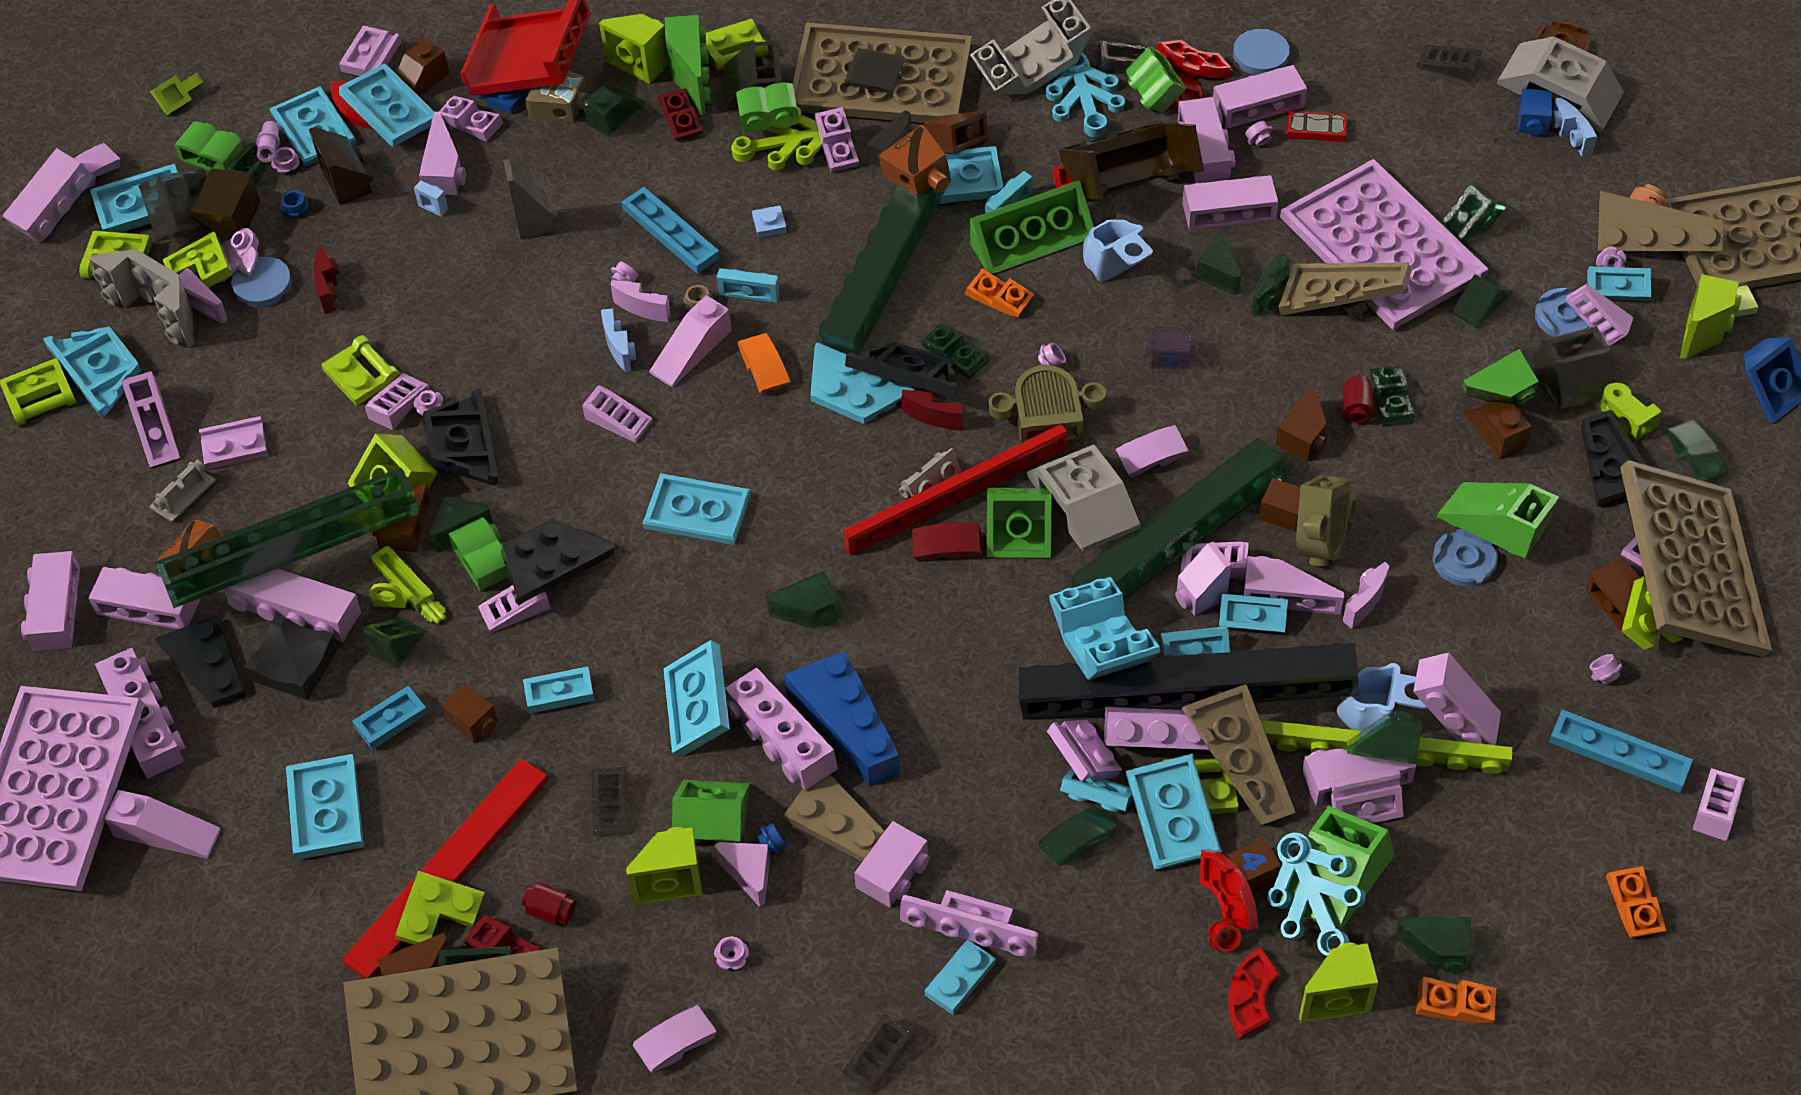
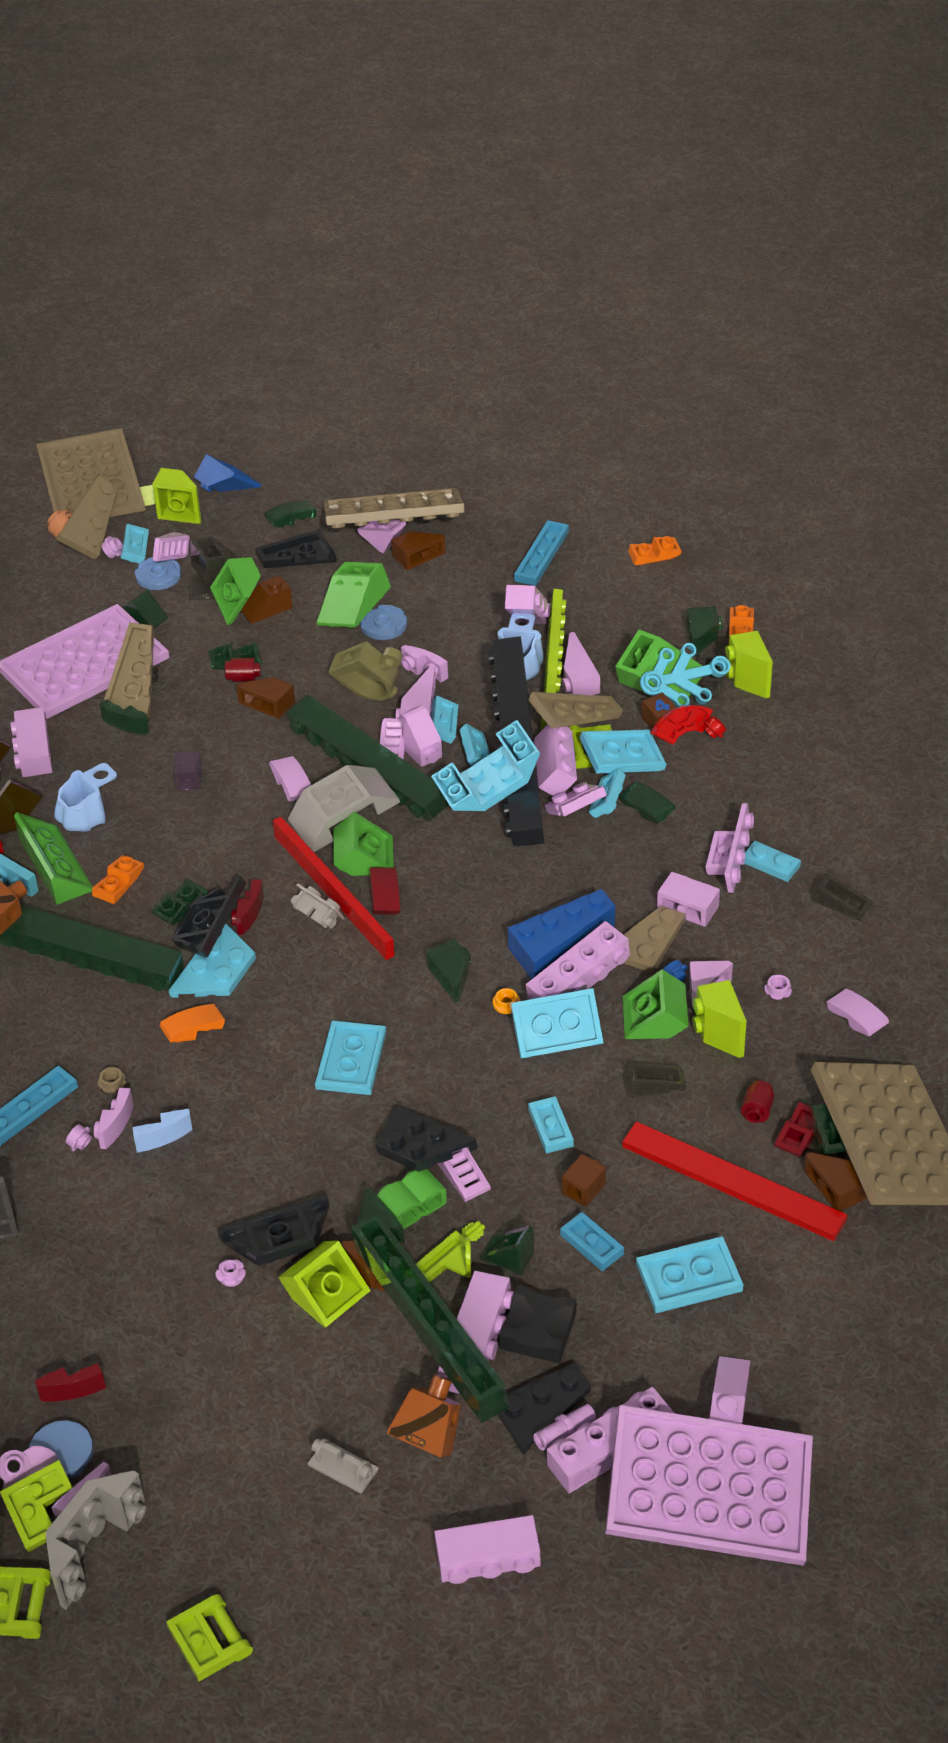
camera: 95 degrees left, 10 degrees down
(96, 365) = (172, 1583): medium azure wing -> none
(138, 599) = (477, 1465): lavender brick -> none
(151, 419) = (244, 1510): lavender slope -> none
(167, 674) = (564, 1426): none -> lavender pin
(233, 443) = (278, 1434): lavender plate -> none
(353, 377) = (193, 1344): lime plate -> none
(391, 418) = (229, 1310): lavender slope -> none
(436, 898) = (771, 1177): lime plate -> none
(602, 401) = (244, 1141): lavender slope -> none
(692, 340) = (165, 1074): lavender slope -> none
(748, 285) = (102, 1036): medium azure plate -> none
(753, 651) = (505, 995): none -> light orange plate
(769, 222) = (18, 1040): light blue plate -> none
(1046, 399) = (244, 836): olive piece -> none
(1051, 355) = (192, 840): lavender plate -> none
(1219, 267) = (100, 745): clear green slope -> none
(1249, 991) = (754, 719): red tile -> none
(1281, 504) = (345, 702): reddish brown brick -> none
(1370, 795) = (599, 659): lavender plate -> none
(1389, 738) = (561, 634): clear green slope -> none
(1472, 214) = (60, 610): clear green slope -> none
(1605, 668) = (472, 556): lavender plate -> none
(1632, 415) = (246, 544): lime leg -> none
(1640, 620) = (435, 526): lime plate -> none
(1714, 822) = (576, 515): lavender slope -> none

